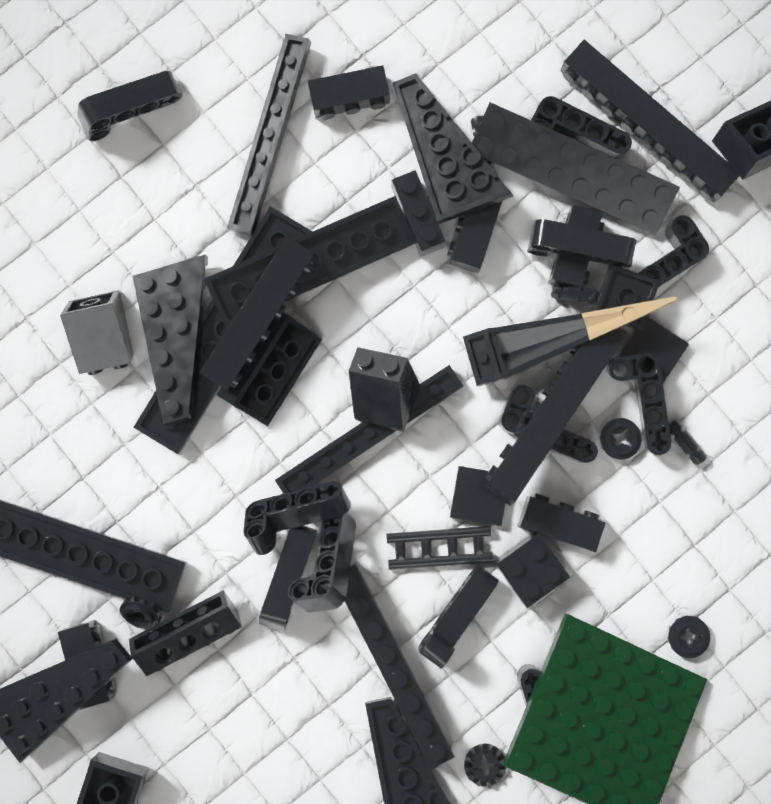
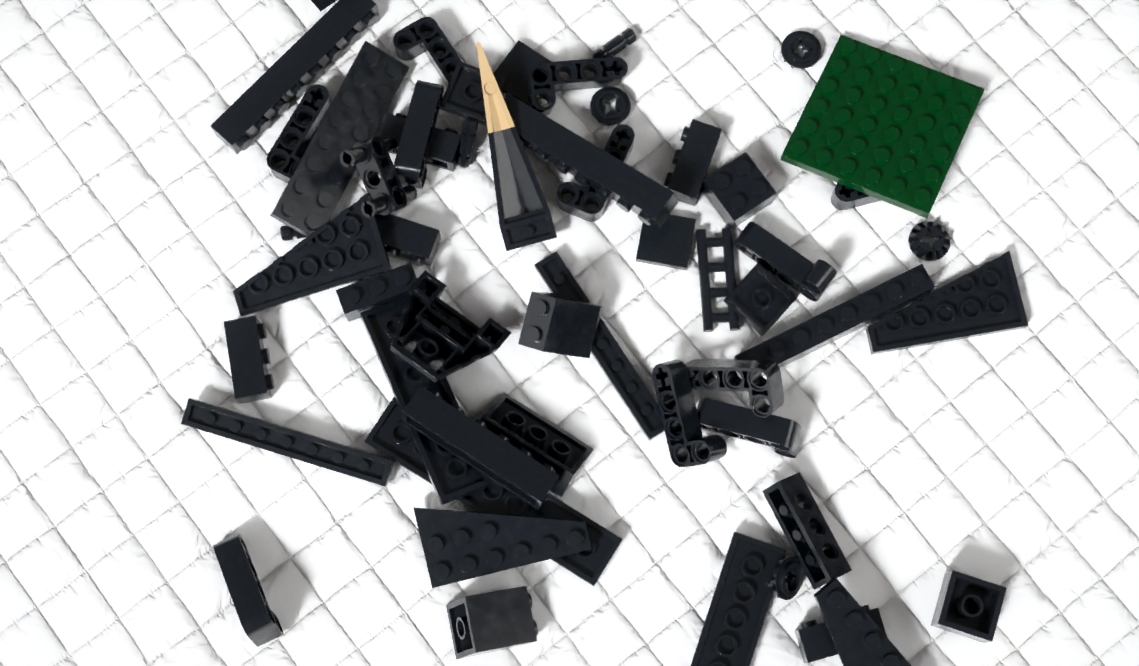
camera: 85 degrees left, 10 degrees down
(368, 271) = (437, 336): none -> black wedge
(418, 590) = (760, 299): none -> black tile
(530, 204) = (384, 191): none -> black piece

